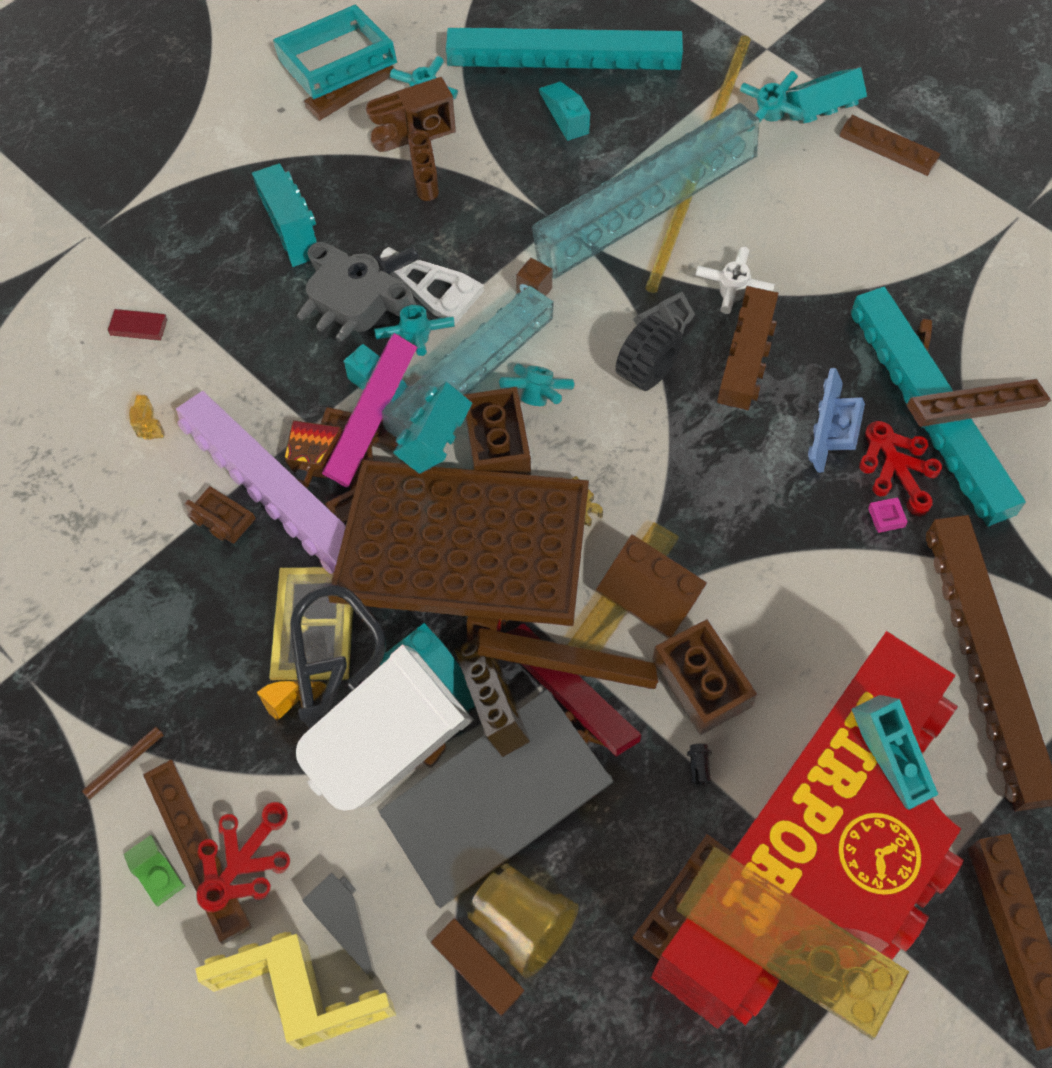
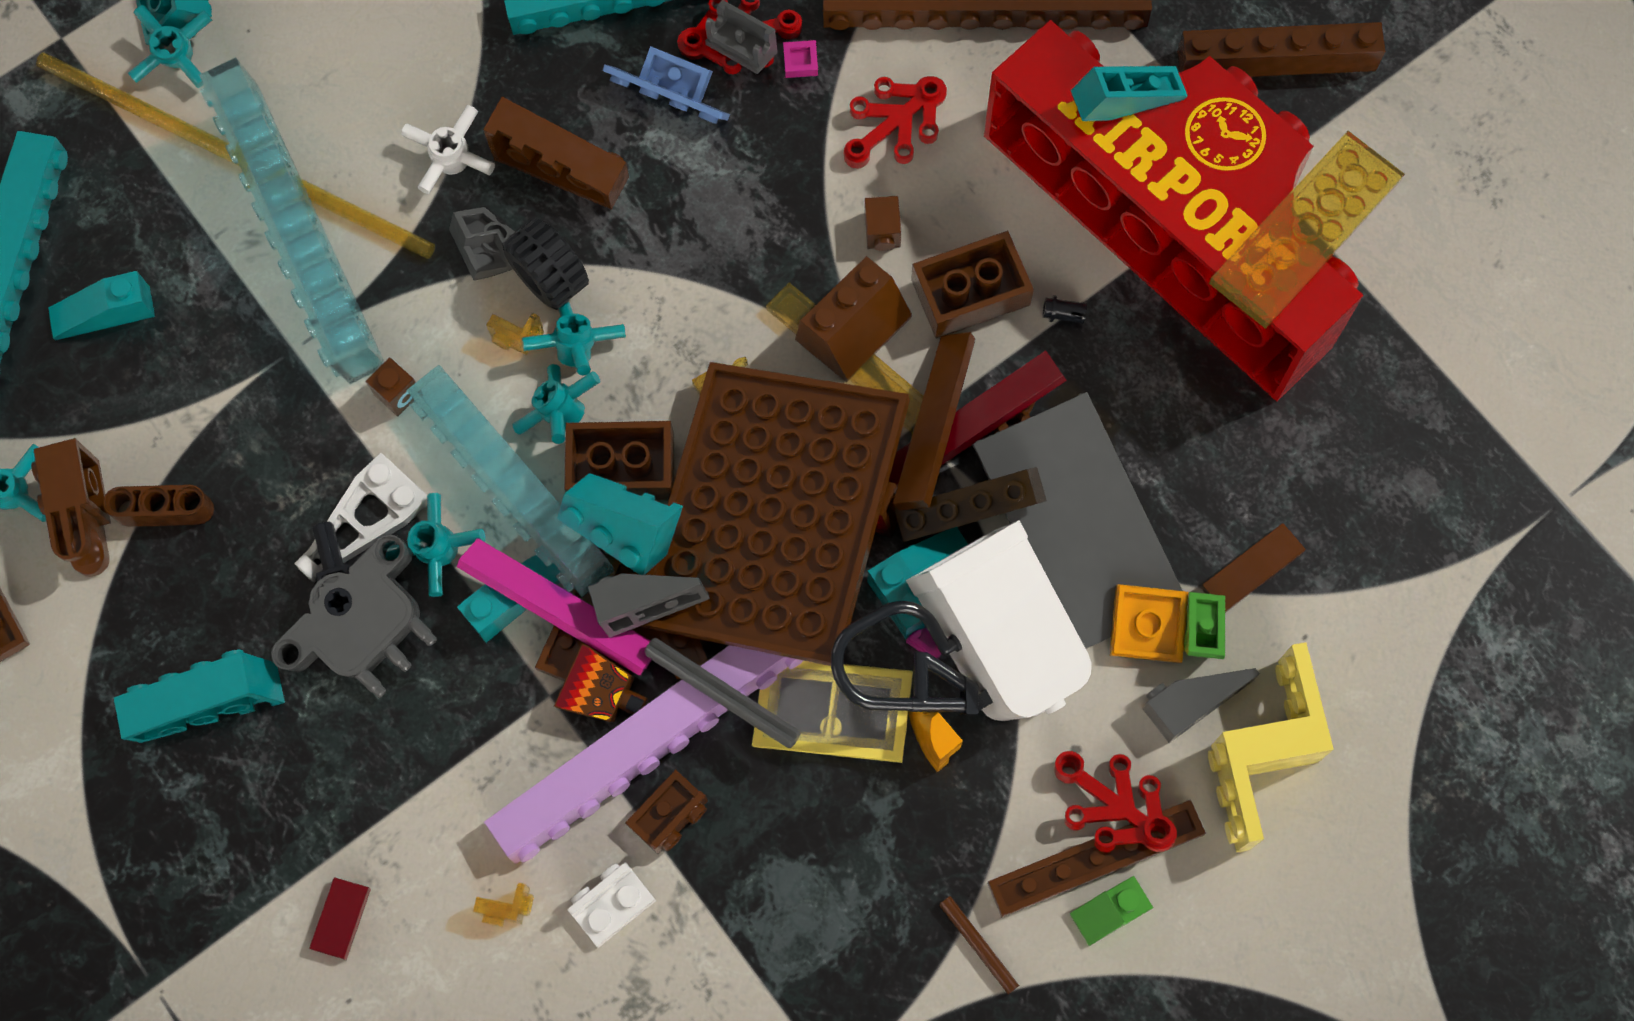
camera: 80 degrees left, 10 degrees up
(151, 489) = (610, 903): none -> white bracket
(306, 528) = (722, 693): none -> dark grey axle
(372, 447) = (635, 599): none -> dark grey slope
(407, 920) = (1205, 626): none -> bright green slope
(411, 872) = (1149, 623): none -> light orange tile
(523, 918) = (1219, 506): clear yellow piece -> none
(591, 356) = (509, 335): none -> clear yellow bracket
(593, 387) = (573, 339): none -> teal bar
(664, 920) = (1202, 354): reddish brown slope -> none
(748, 599) = (882, 223): none -> reddish brown brick
(853, 601) = (897, 116): none -> red plant
(887, 461) = (741, 37): none -> dark grey hinge

